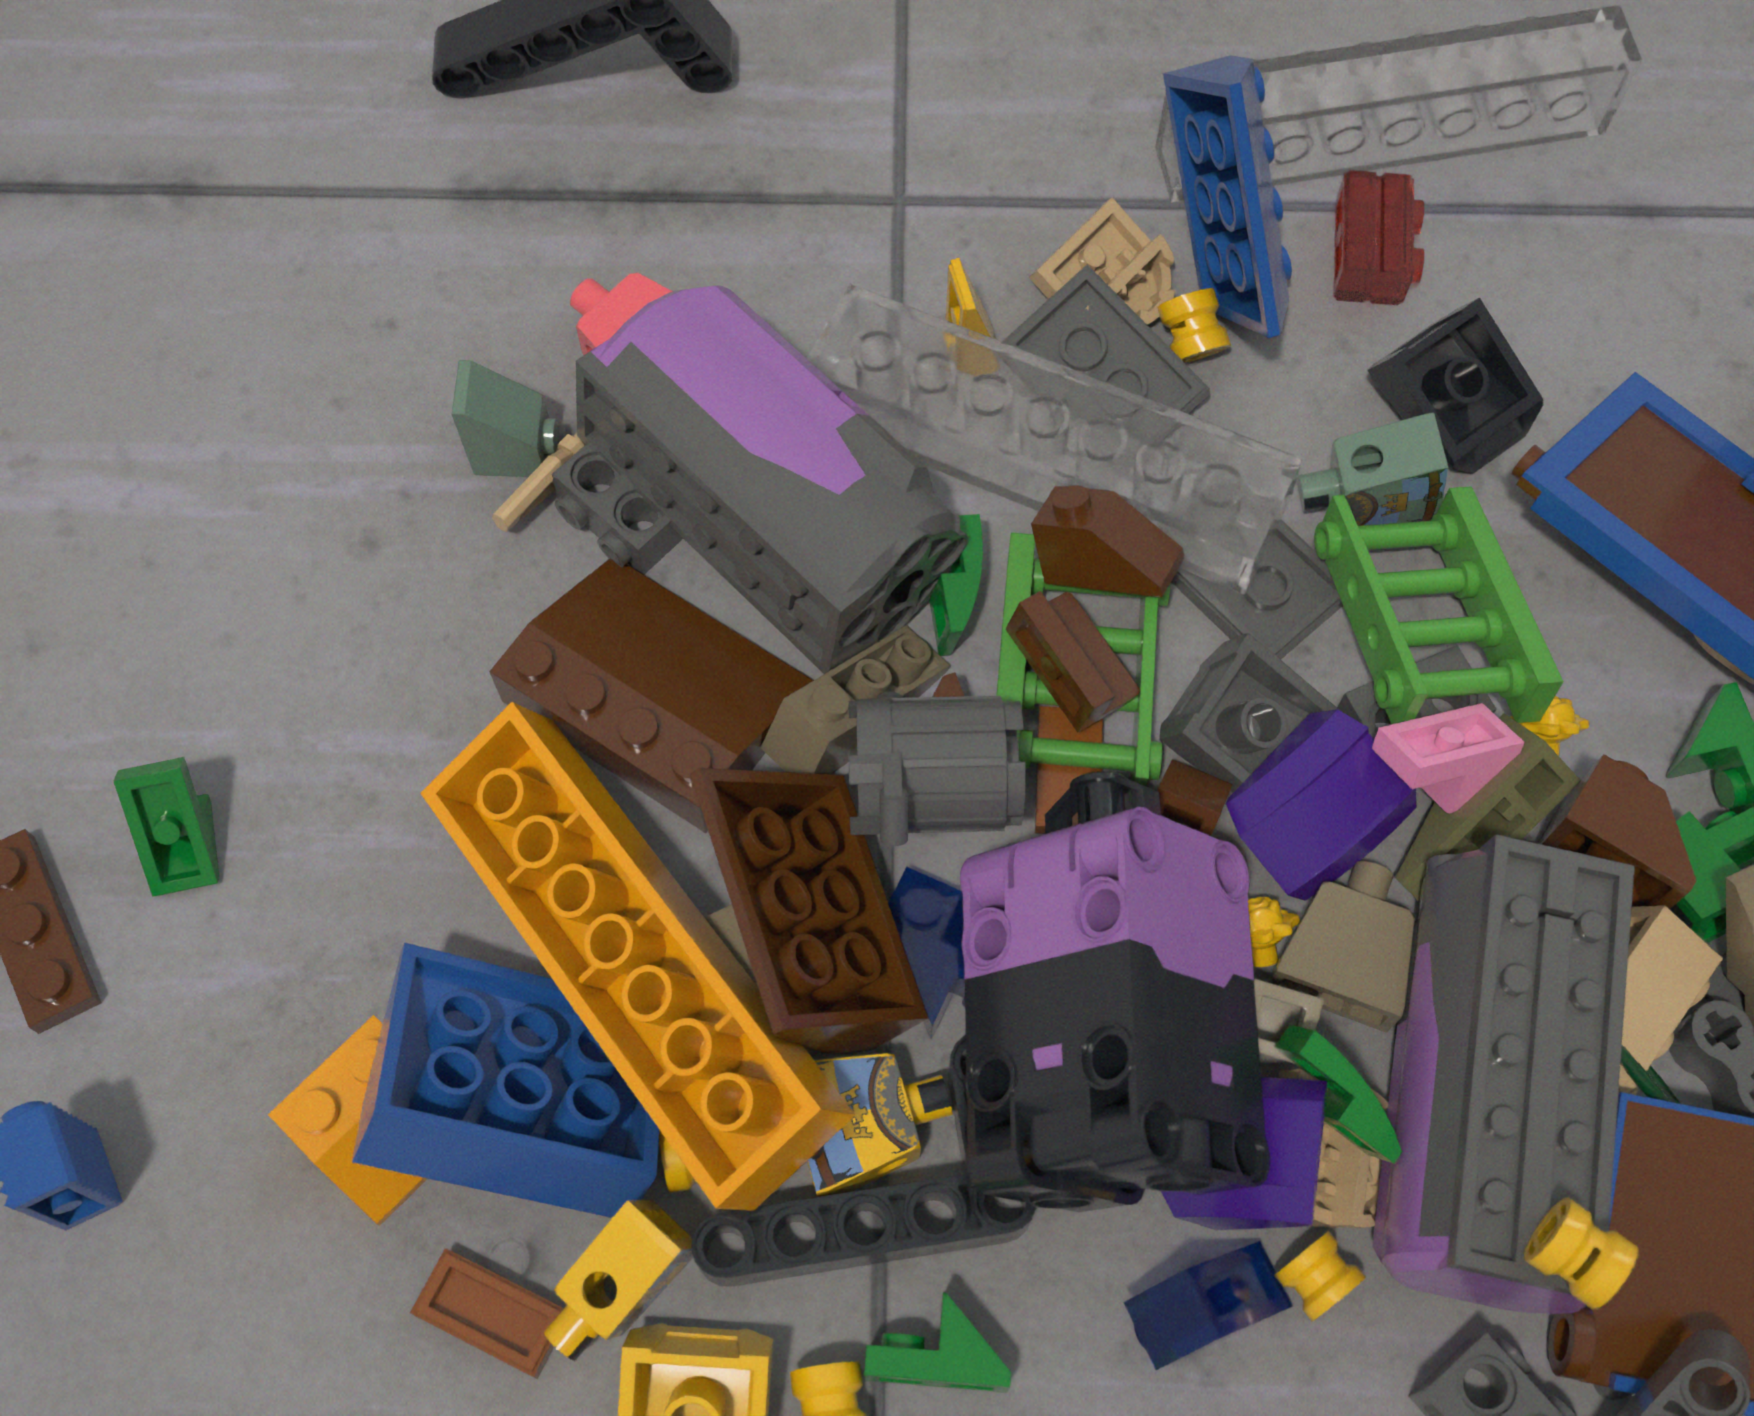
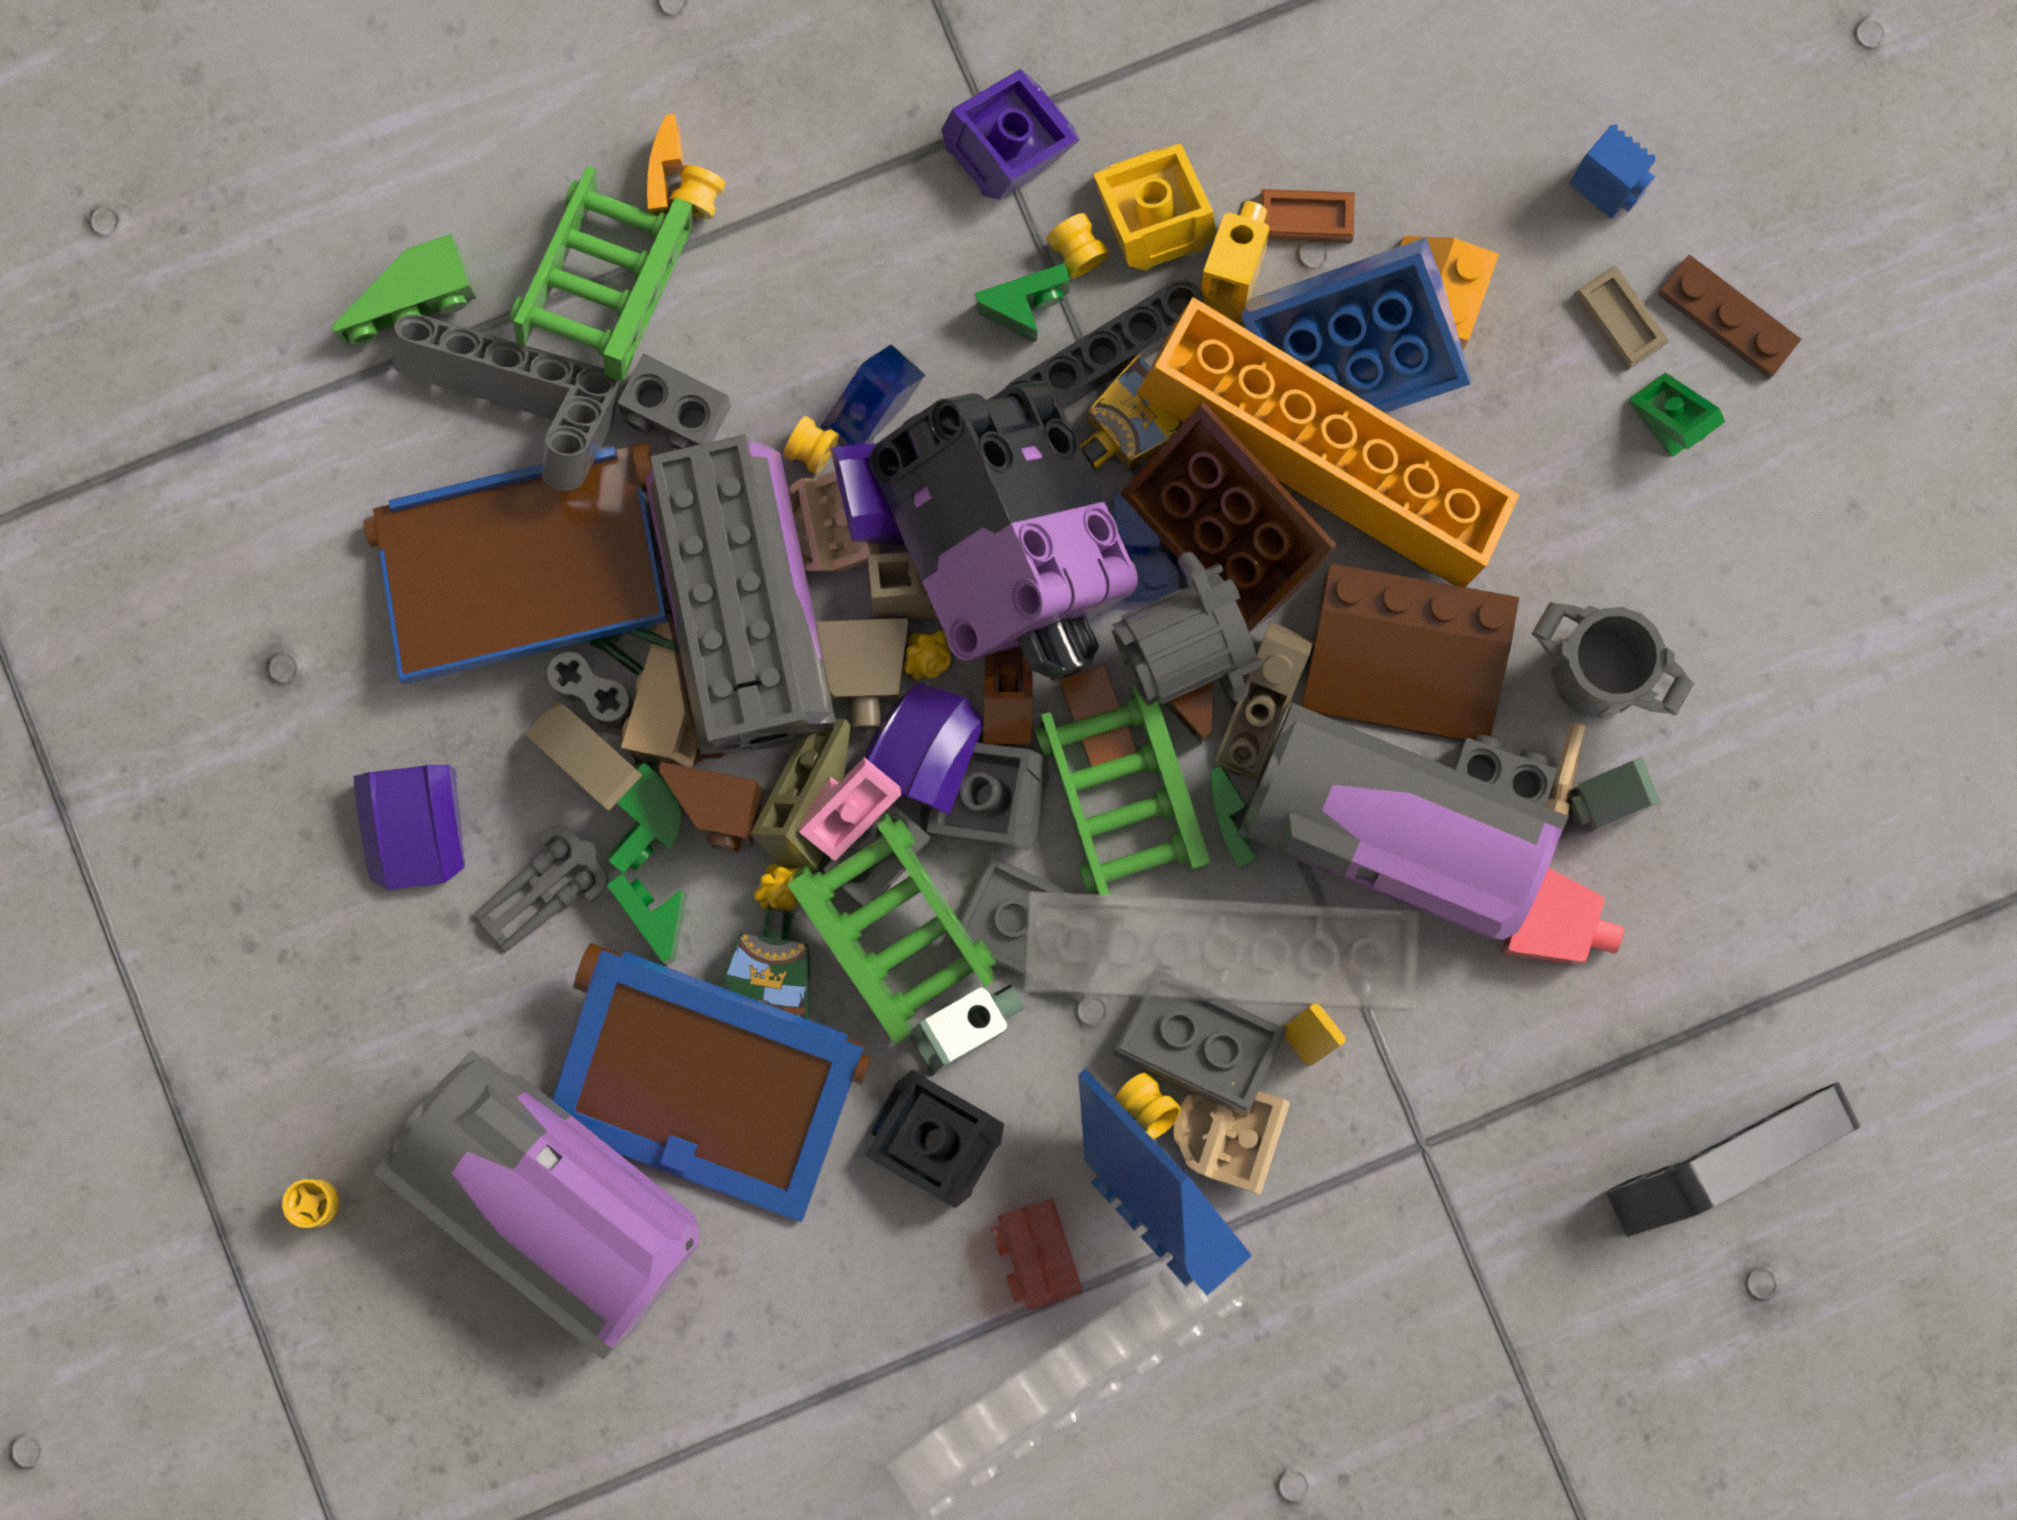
camera: 155 degrees right, 15 degrees up
(163, 988) = (1621, 317): none -> dark tan tile
(423, 542) = (1610, 661): none -> dark grey container
(1071, 658) = (1126, 780): reddish brown panel -> none
(1102, 544) = (1139, 868): reddish brown slope -> none
(1350, 1102) = (833, 535): green slope -> none
(1581, 1253) = (675, 464): yellow wheel -> none
(1597, 628) = (772, 966): none -> torso

